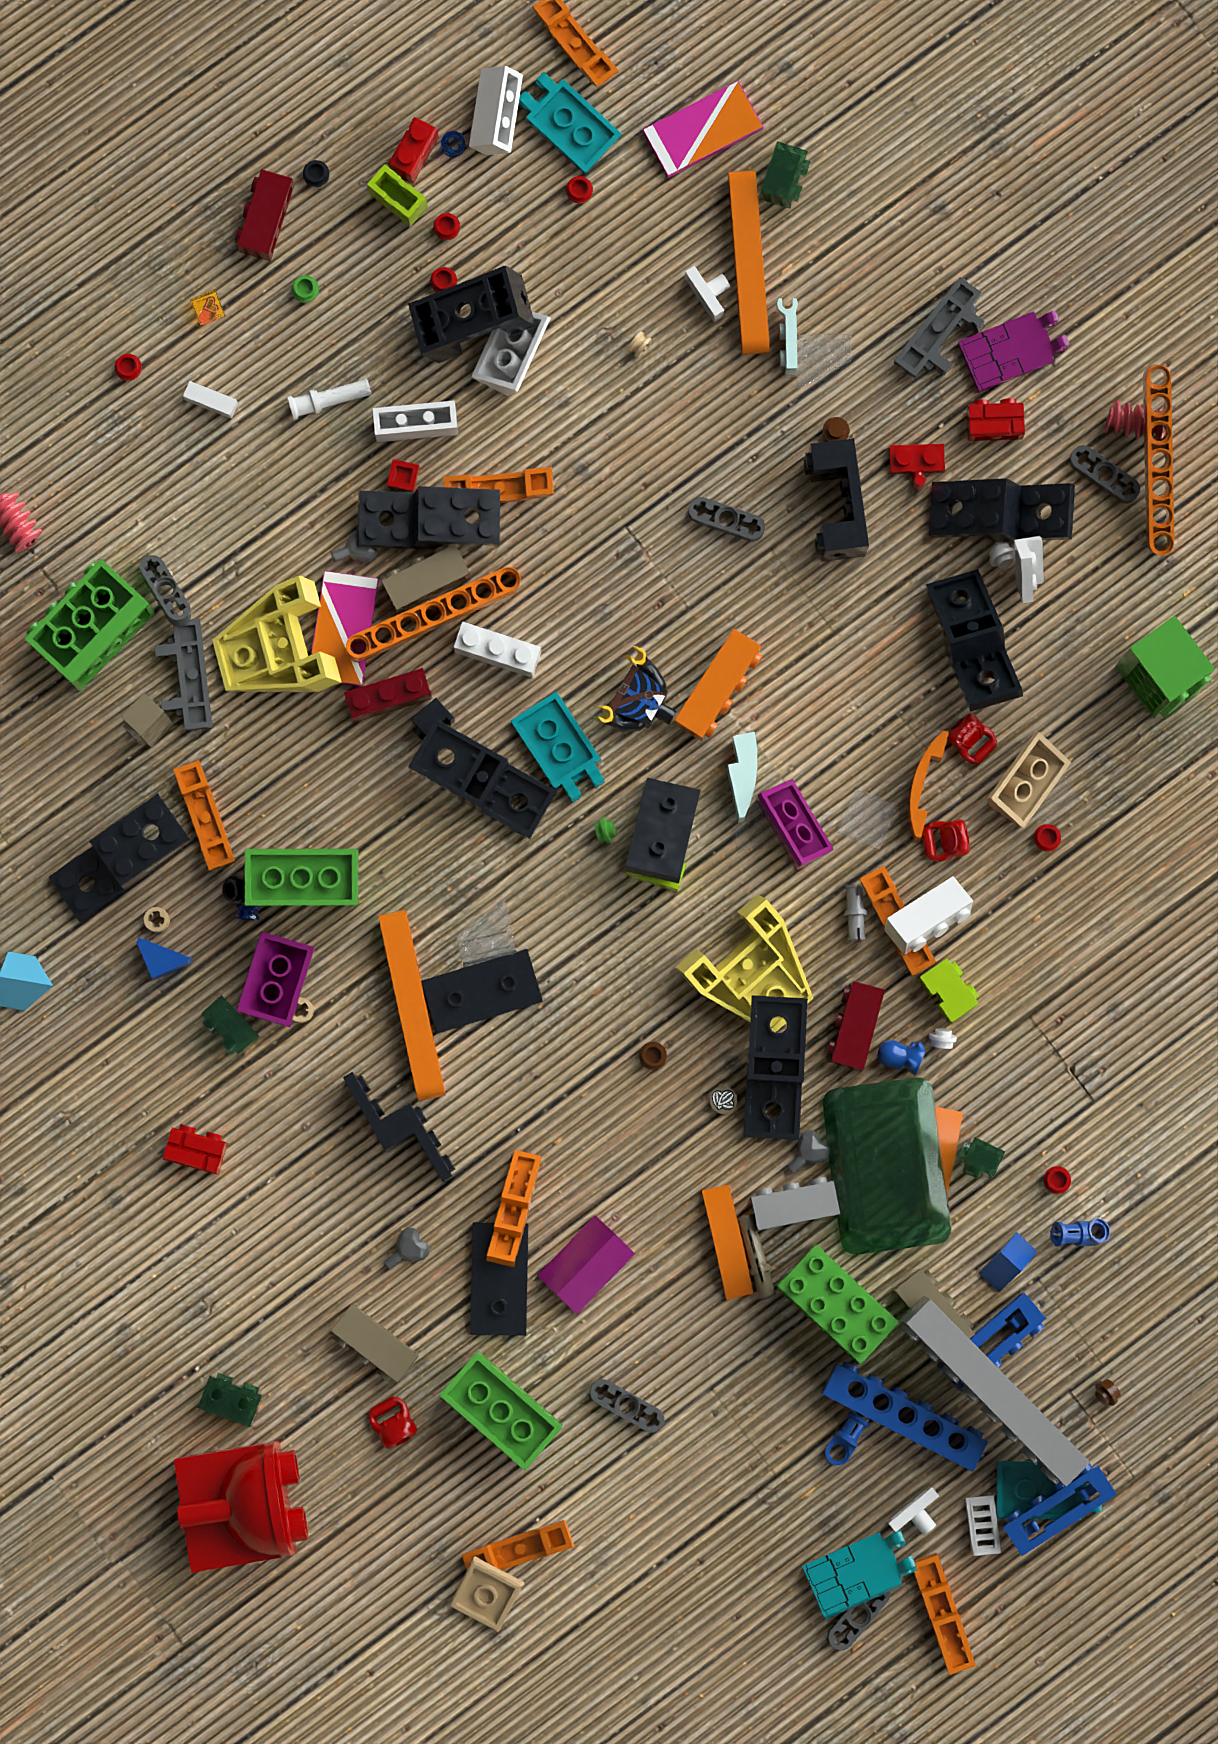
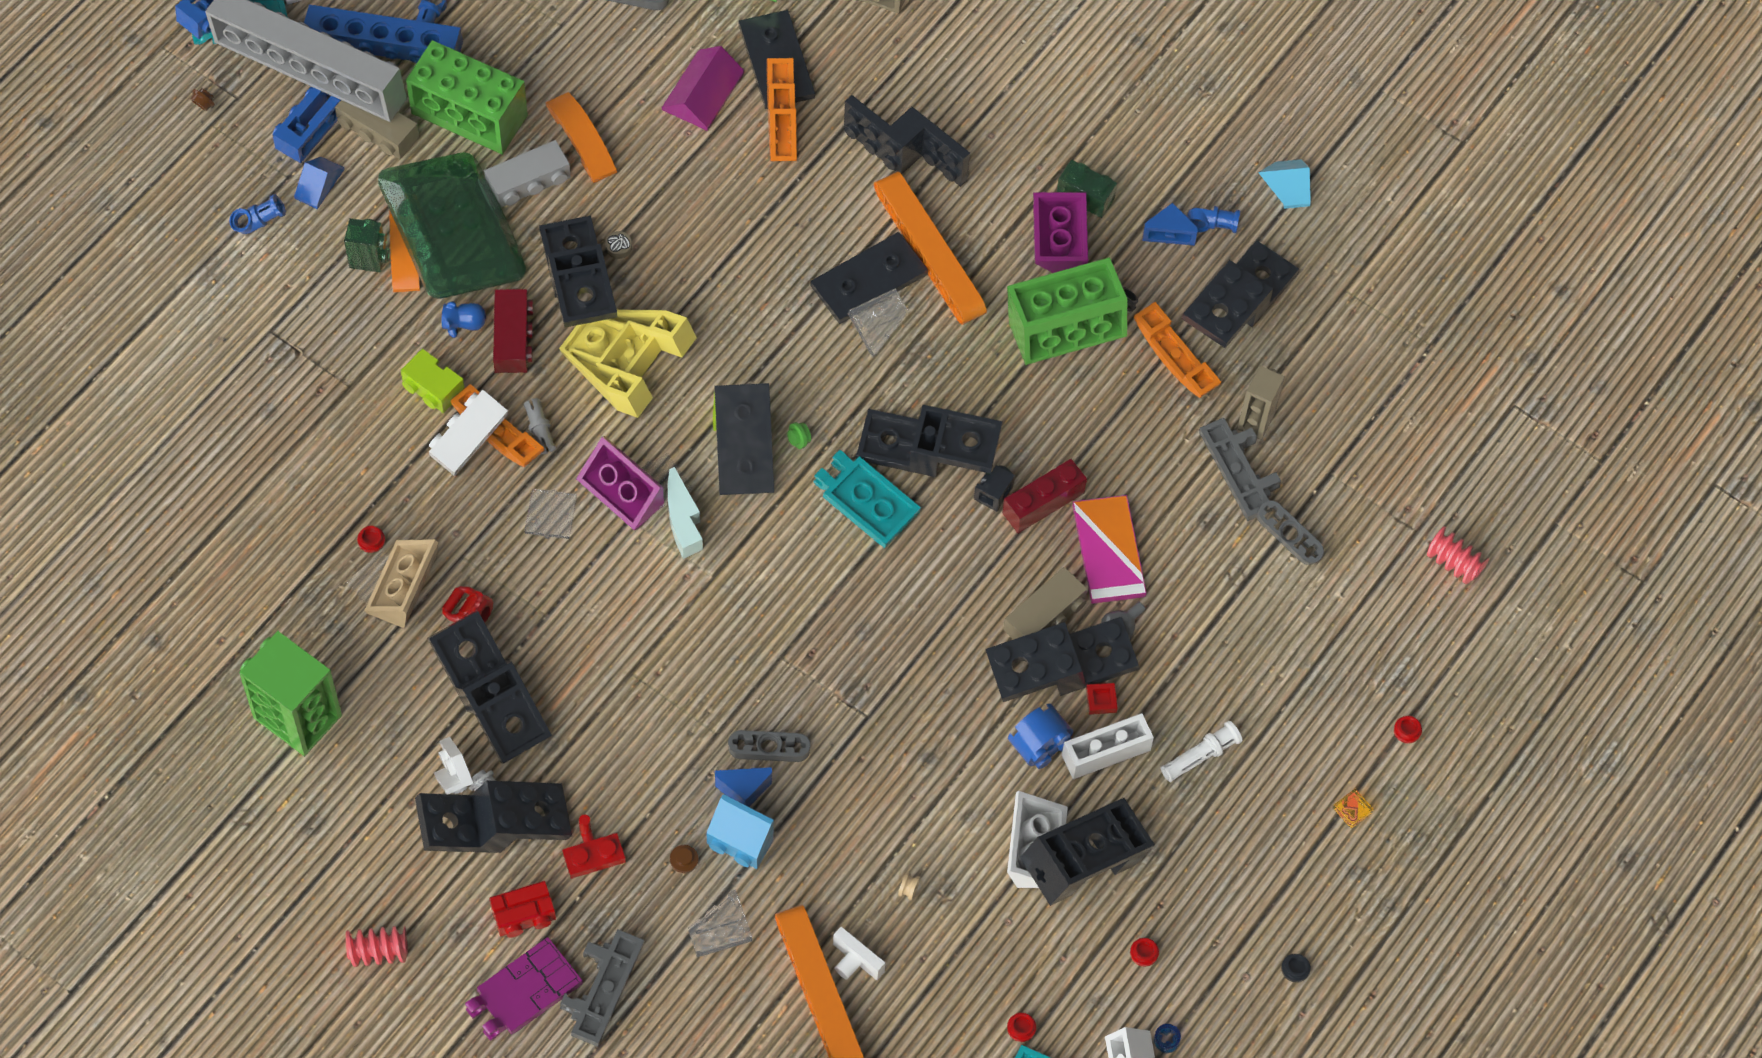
camera: 160 degrees right, 20 degrees down
(102, 637) = (1349, 478): bright green brick -> none
(108, 956) = (1212, 219): none -> blue connector
(150, 925) = (1182, 266): tan bush -> none
(195, 1150) = (1080, 87): red brick -> none
(210, 399) = (1315, 720): white piece -> none
(264, 215) = (1331, 908): dark red brick -> none
(267, 647) = (1171, 504): light yellow wedge -> none
(300, 1019) = (1023, 216): tan bush -> none
(305, 289) = (1263, 851): bright green plate -> none
(397, 195) = (1204, 960): lime brick -> none
(408, 1248) = (865, 62): dark grey rock -> none
(413, 150) = (1205, 1013): red brick -> none
(442, 279) = (1128, 897): red plate -> none
(442, 604) = (1022, 587): orange beam -> none
(474, 445) = (1041, 736): none -> blue brick
(497, 649) = (954, 562): white brick -> none
(513, 486) = (1000, 716): orange slope -> none
(638, 698) = (805, 552): torso -> none
(652, 1055) = (694, 263): reddish brown plate -> none
(718, 684) = (730, 585): orange brick -> none
(762, 483) = (743, 784): none -> blue slope
(765, 1288) = (546, 120): dark tan pin -> none
(780, 433) = (740, 832): none -> slope
(788, 332) = (760, 938): light aqua plate -> none
(809, 1150) = (526, 223): dark grey rock -> none
(839, 461) = (674, 817): black plate -> none
(917, 816) = (504, 580): orange slope -> none
(942, 1038) = (428, 340): white plate -> none
(953, 838) = (462, 515): red piece -> none
(1057, 1180) = (289, 255): red plate -> none
(1103, 462) = (391, 880): dark grey beam -> none
(1151, 447) = (344, 903): orange beam -> none

